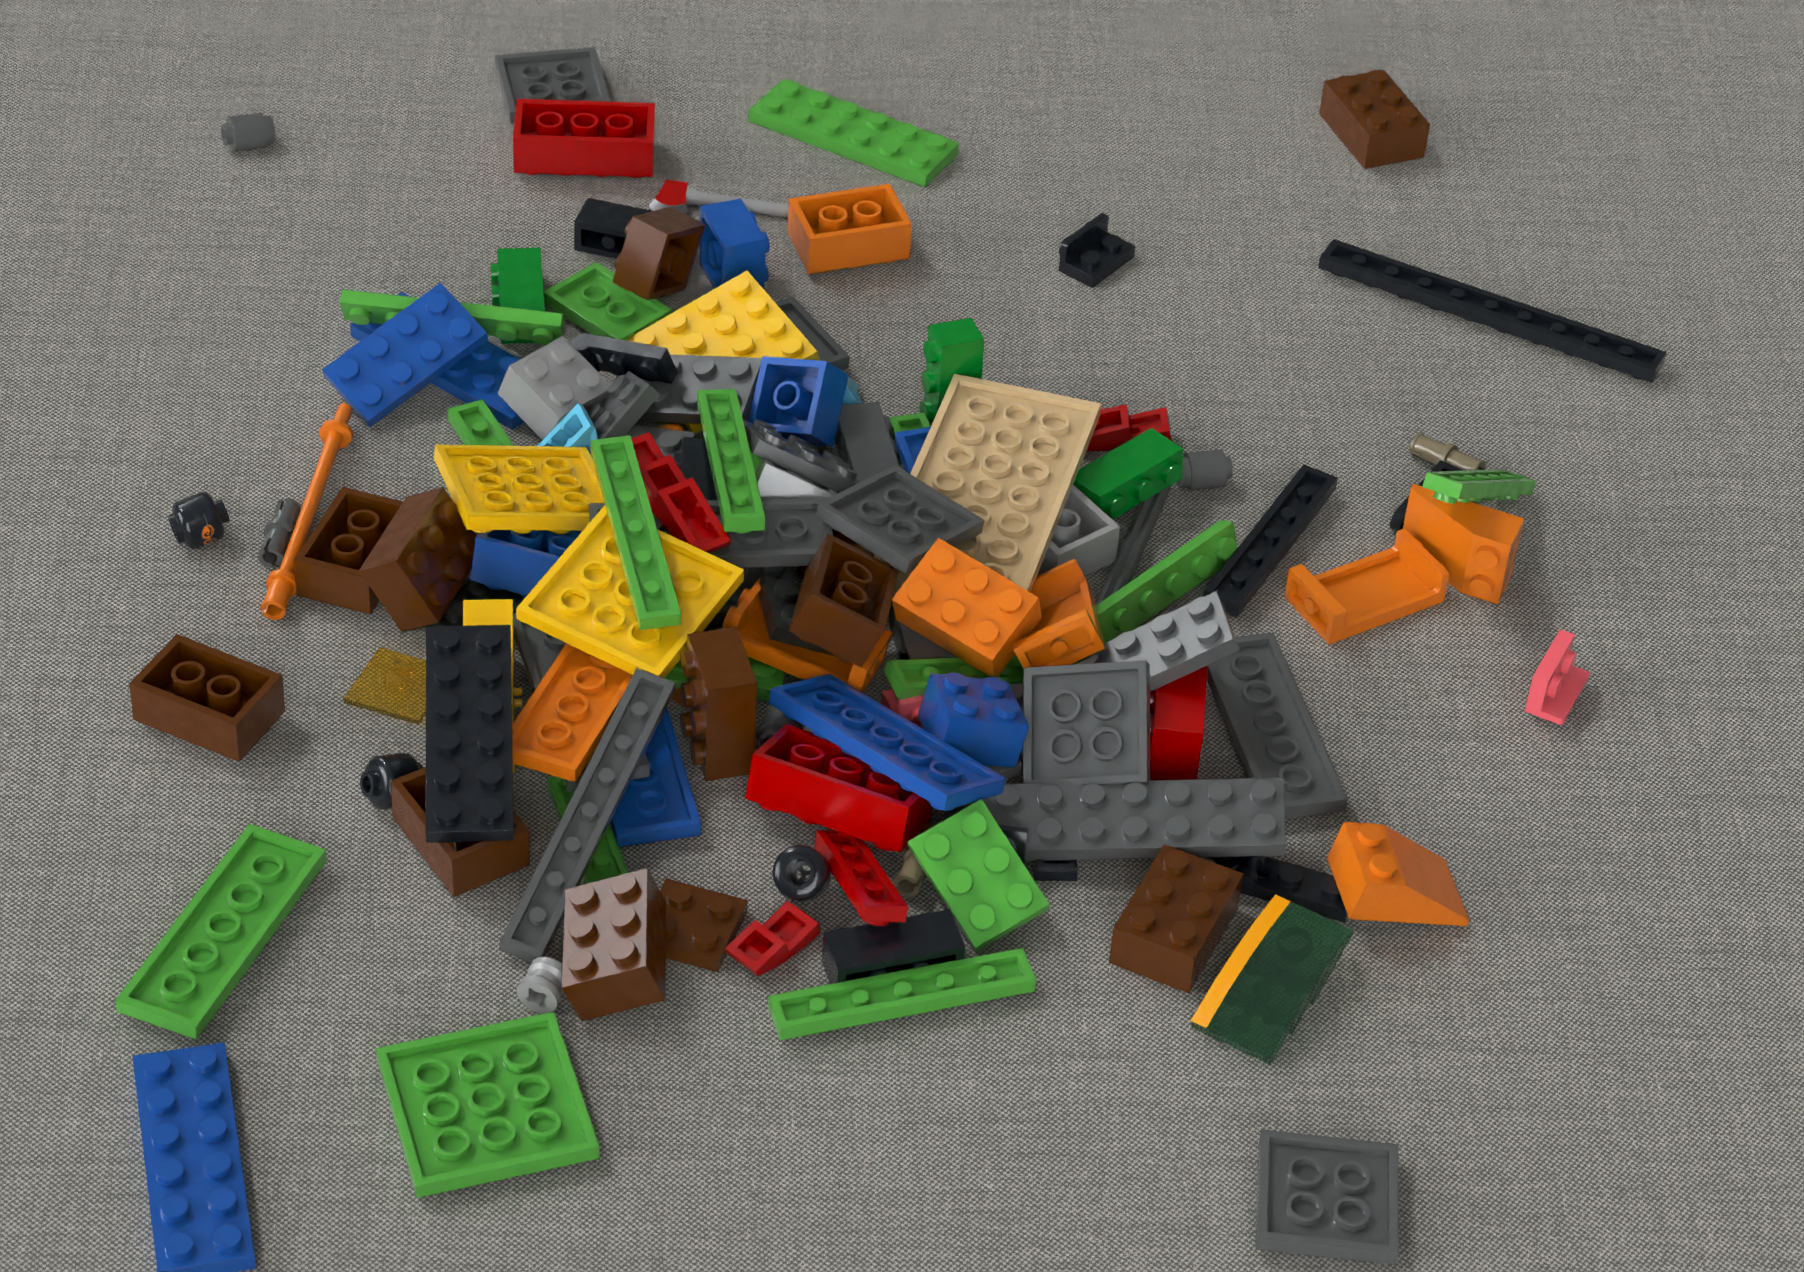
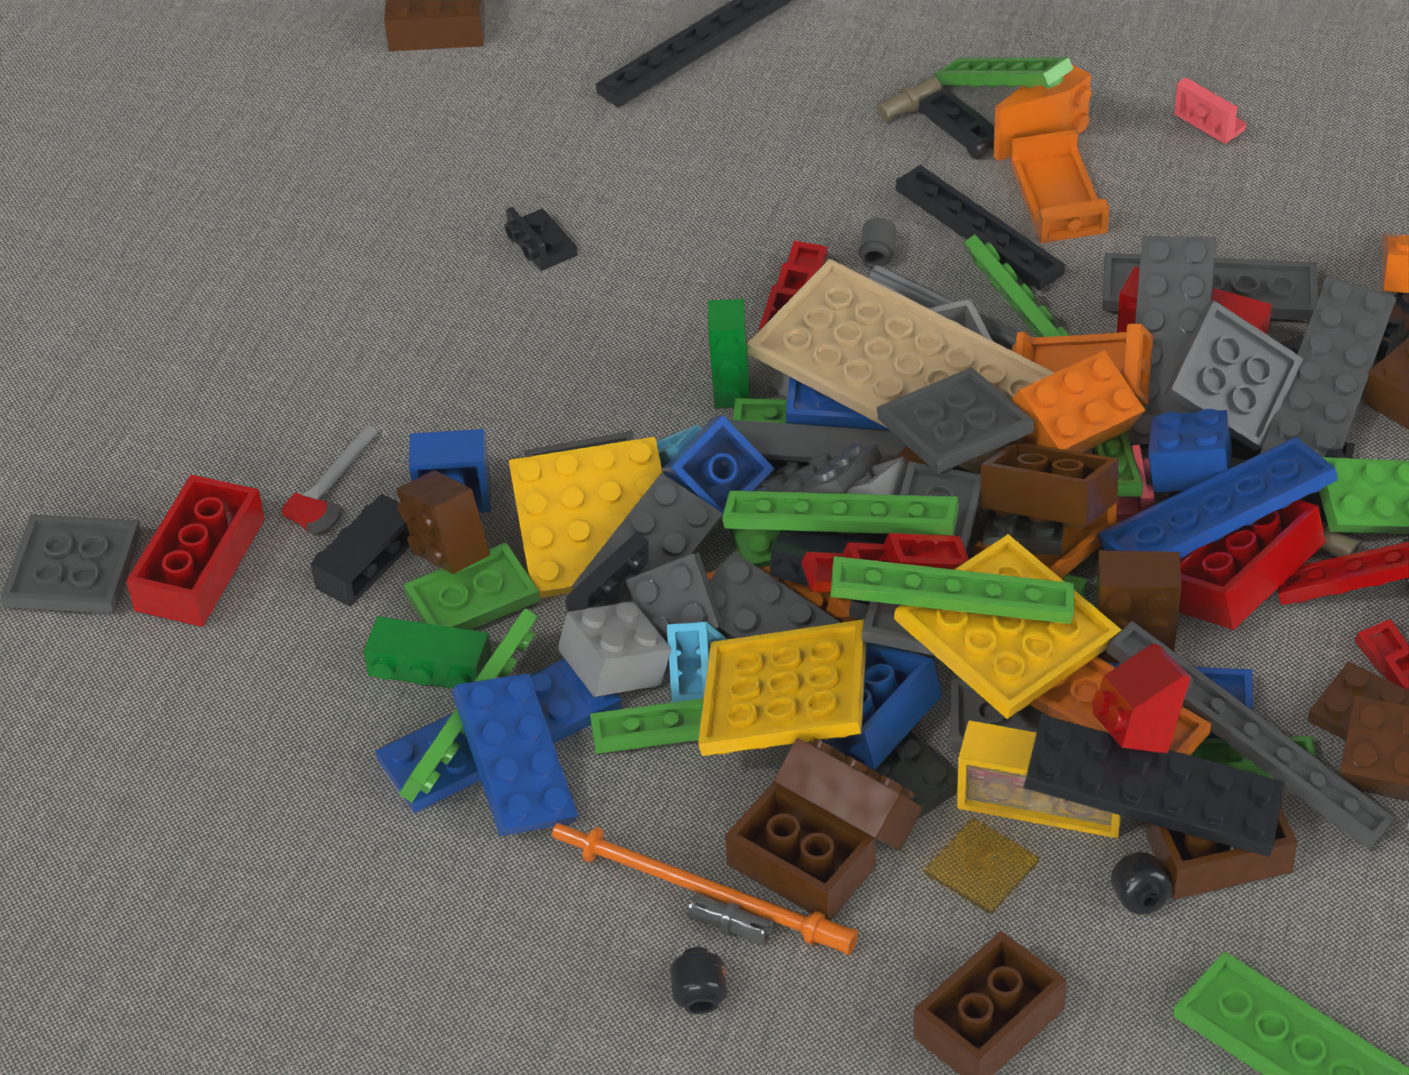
camera: 65 degrees left, 5 degrees up
(248, 131) = (23, 836): dark grey brick -> none
(536, 683) = (1142, 700): none -> red slope
(786, 873) = (1336, 612): black head -> none
(849, 228) = (443, 382): orange brick -> none
(854, 132) = (263, 358): bright green plate -> none
(1131, 473) = (885, 264): green brick -> none

